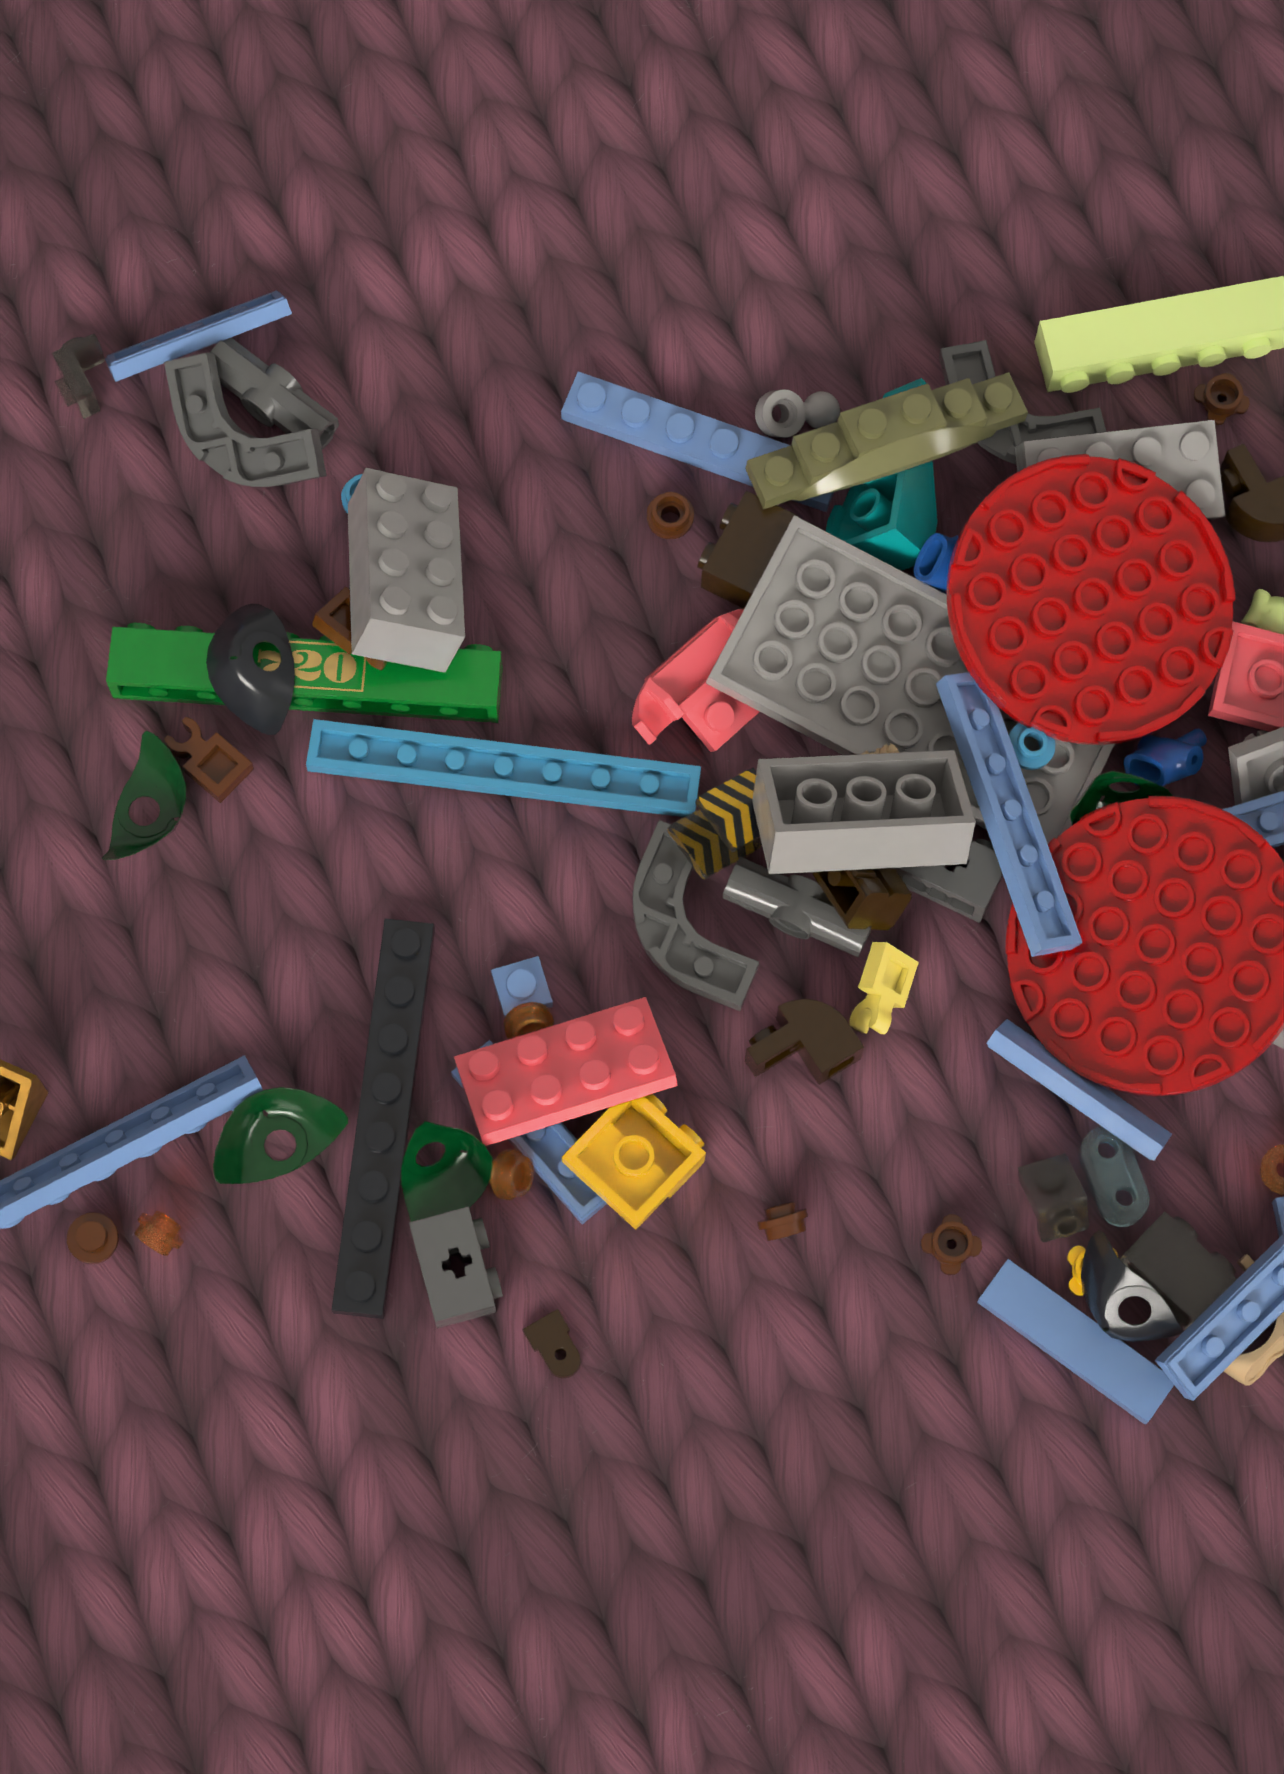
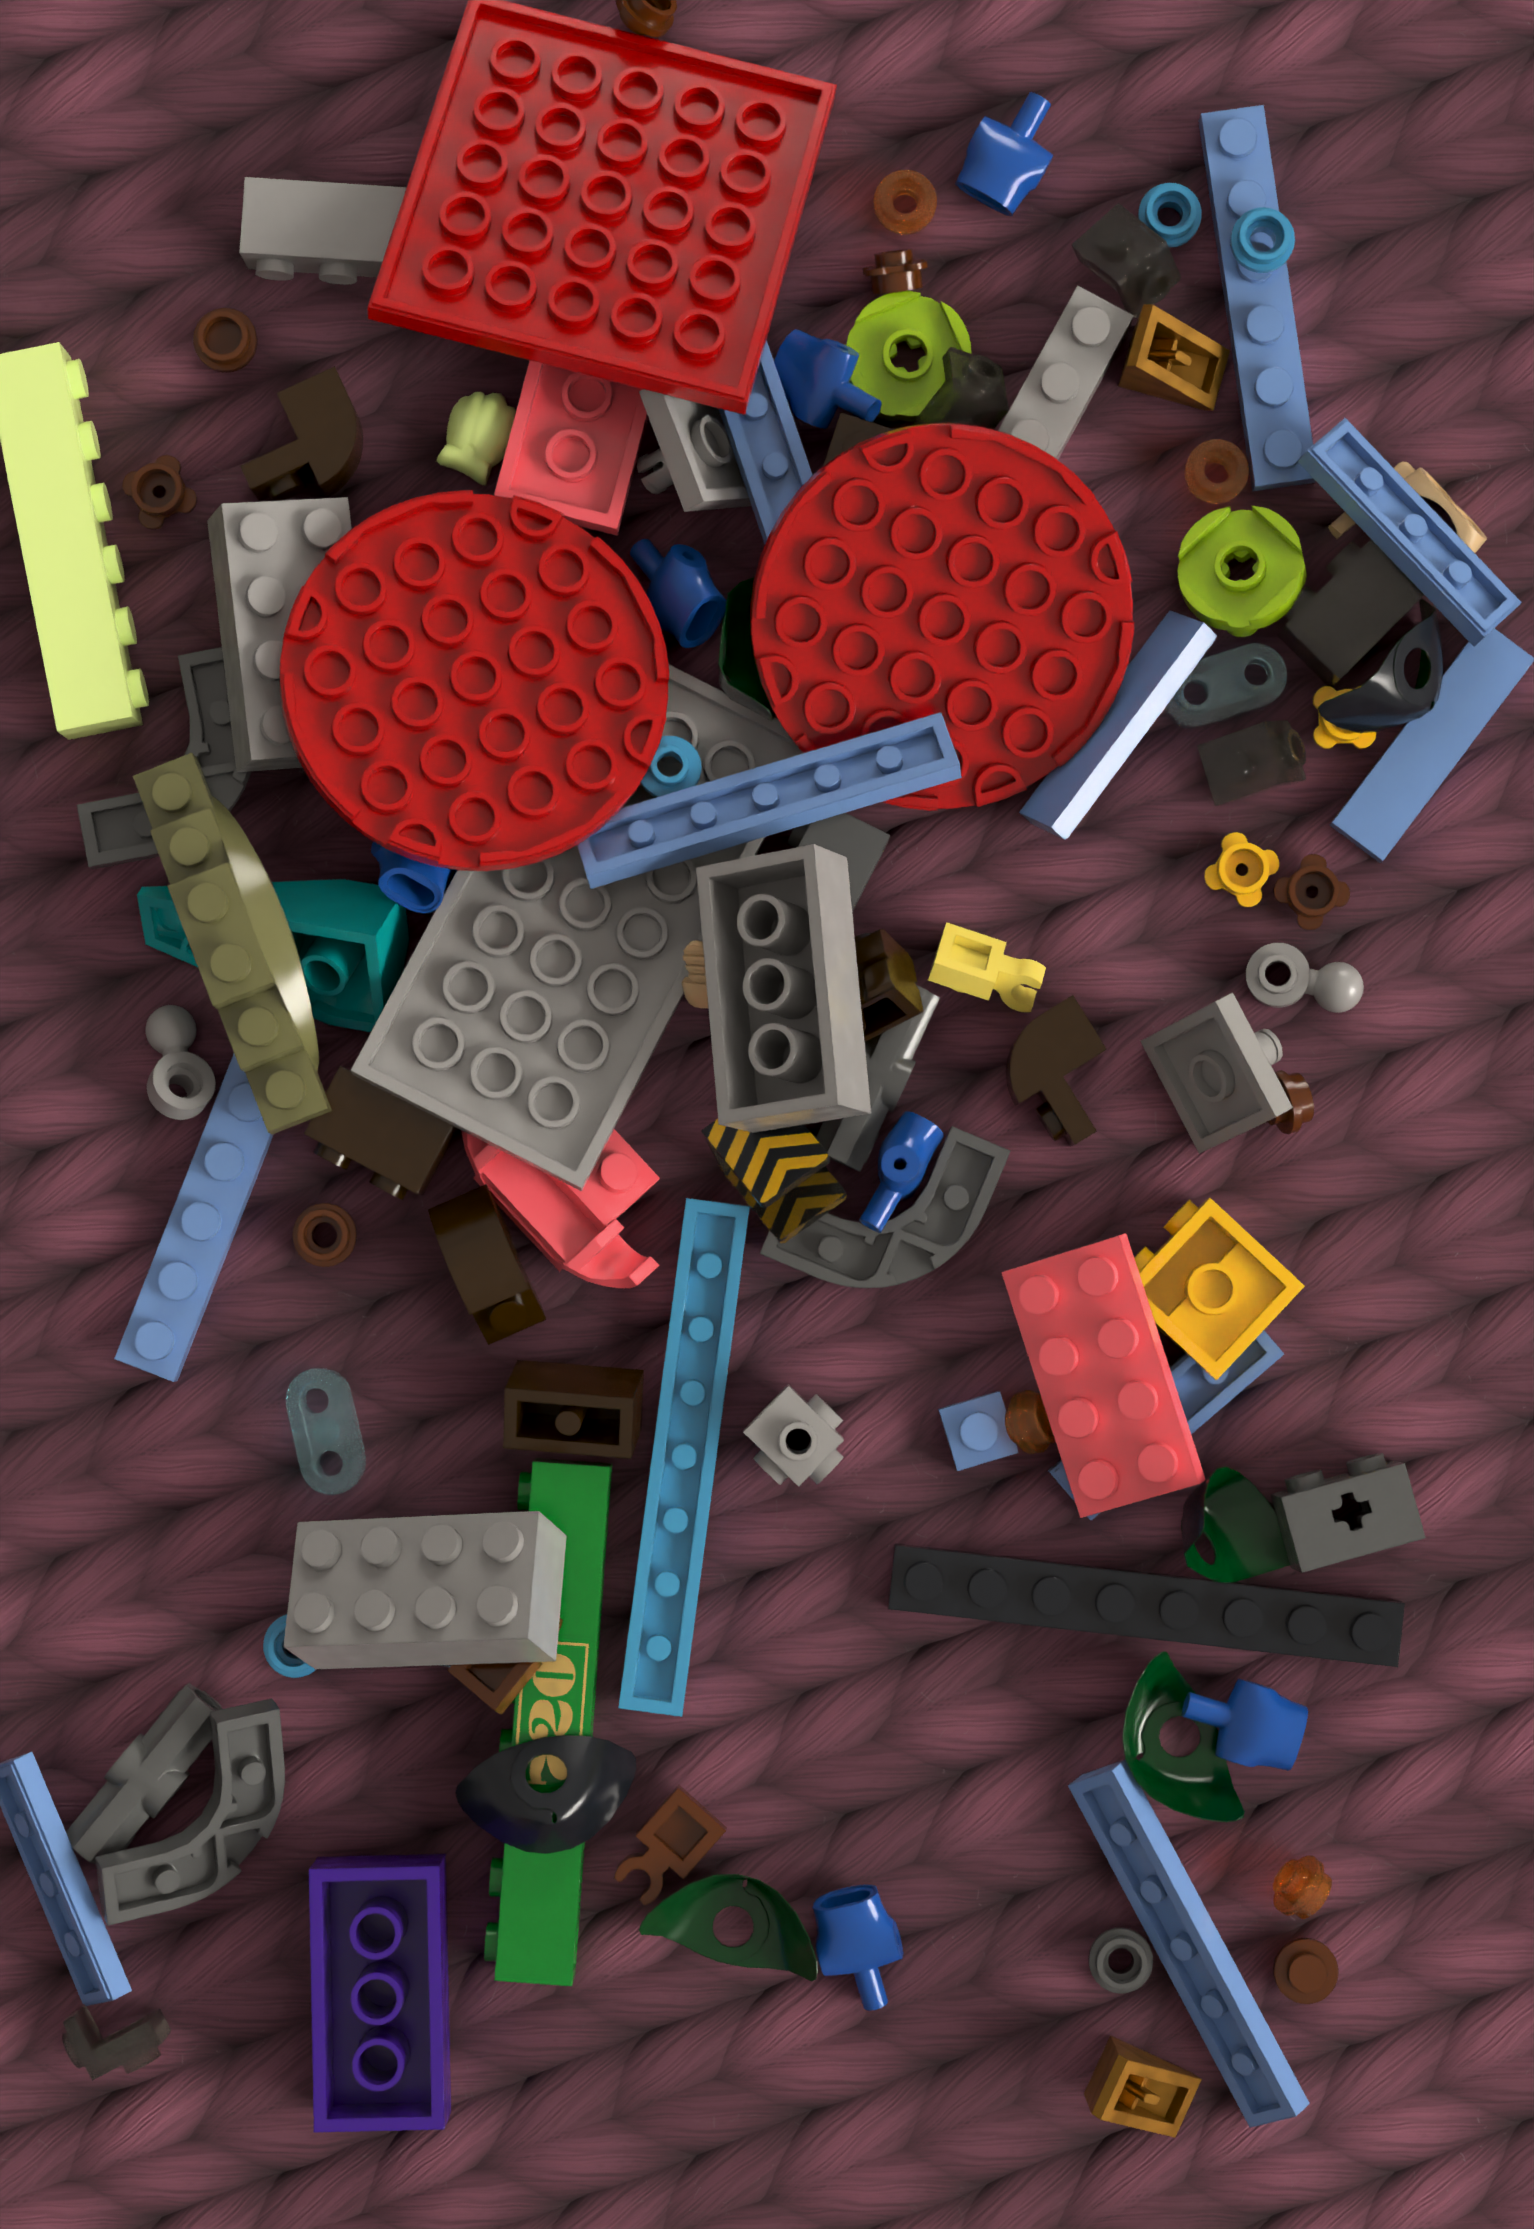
camera: 85 degrees left, 15 degrees up
(96, 1085) = (1126, 1979): none -> dark grey plate
(106, 550) = (380, 1993): none -> dark purple brick
(131, 896) = (857, 1939): none -> blue piece
(288, 1197) = (1253, 1725): none -> blue piece
(511, 1174) = (1227, 1443): clear orange plate -> none
(518, 844) = (792, 1412): none -> light grey brick
(525, 520) = (330, 1430): none -> clear light blue plate
(540, 683) = (573, 1409): none -> dark brown brick
(550, 1336) = (1425, 1393): dark brown piece -> none
(646, 618) = (486, 1264): none -> dark brown brick
(726, 923) = (901, 1166): none -> blue piece
(806, 1162) = (1219, 1072): none -> light grey tile
(876, 1260) = (1335, 986): none -> light grey plate
(981, 1185) = (1258, 862): none -> yellow plate
(1194, 1205) = (1241, 534): none -> lime plate

